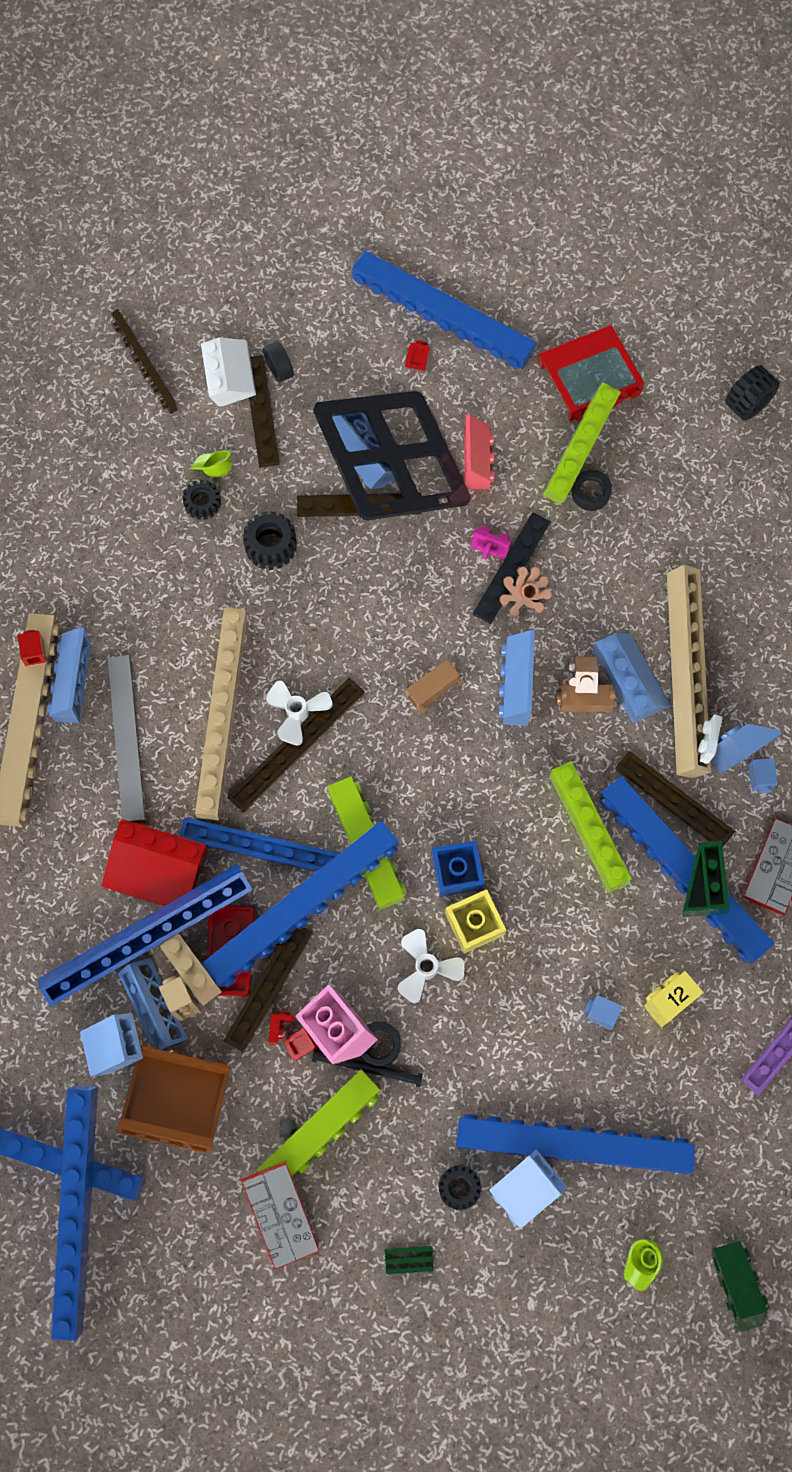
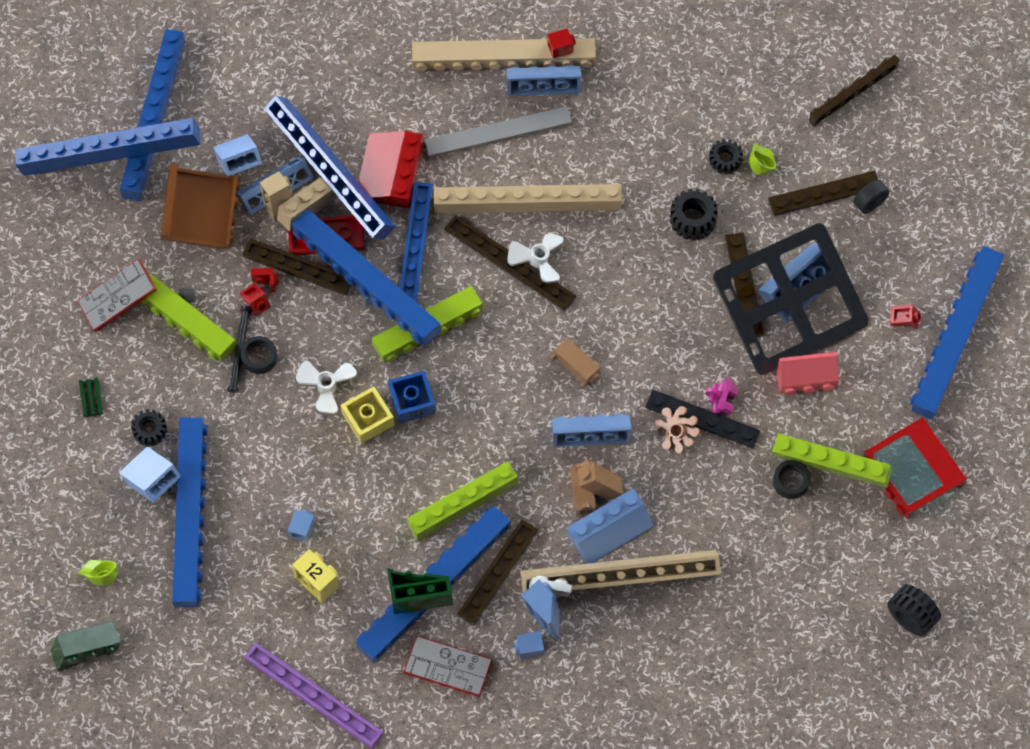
camera: 85 degrees right, 5 degrees down
(228, 370) = (855, 157): white slope -> none
(335, 1026) = (267, 315): bright pink slope -> none

